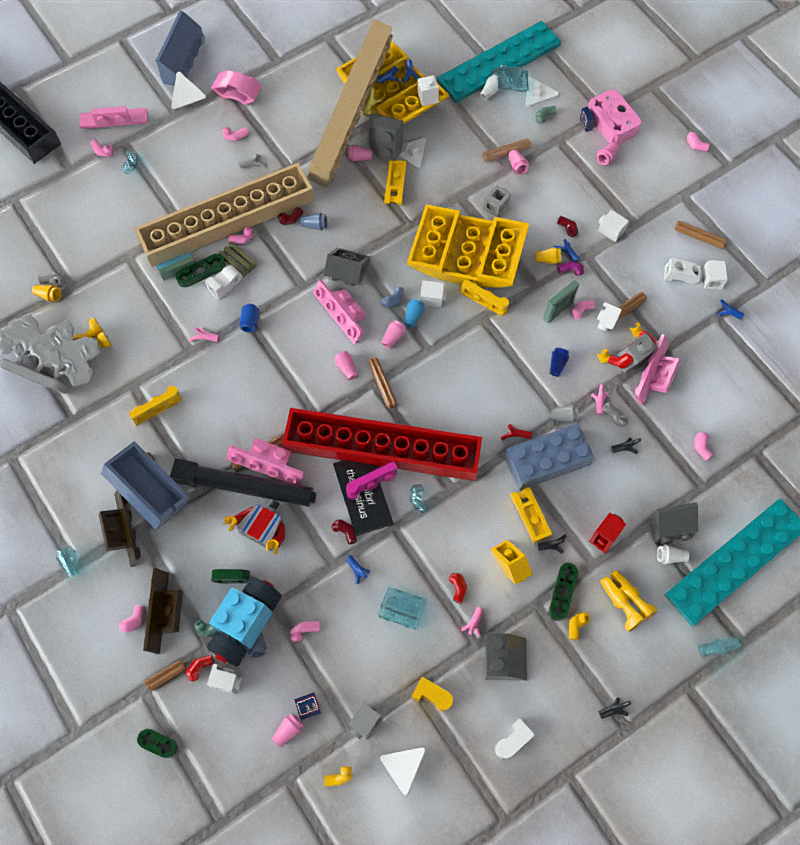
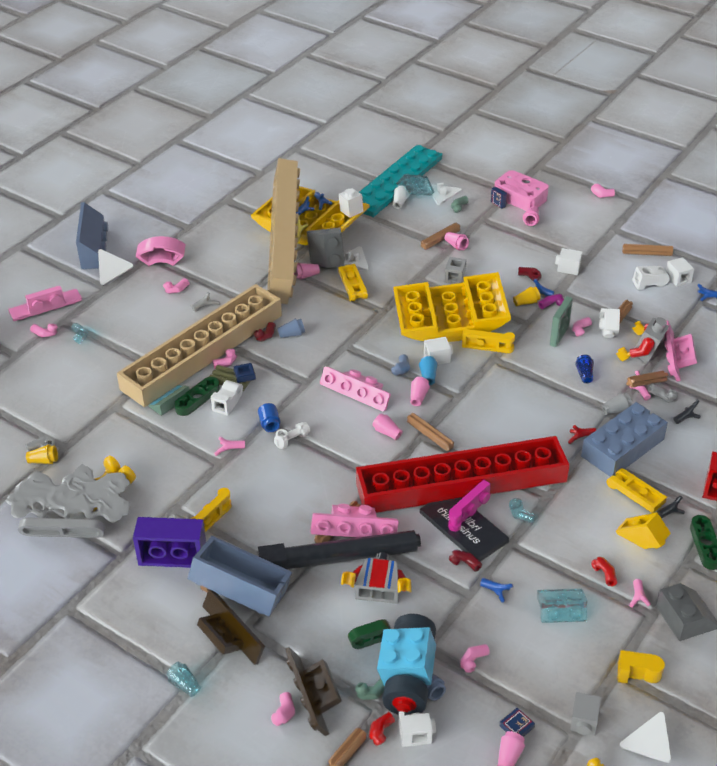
camera: 20 degrees left, 25 degrees down
(106, 425) = (168, 541): none -> dark purple brick
(249, 260) = (244, 372): none -> dark blue tile
(251, 345) = (282, 436): none -> white bar
(346, 266) = (343, 352): dark grey slope -> none
(606, 397) = (647, 379): none -> medium nougat axle

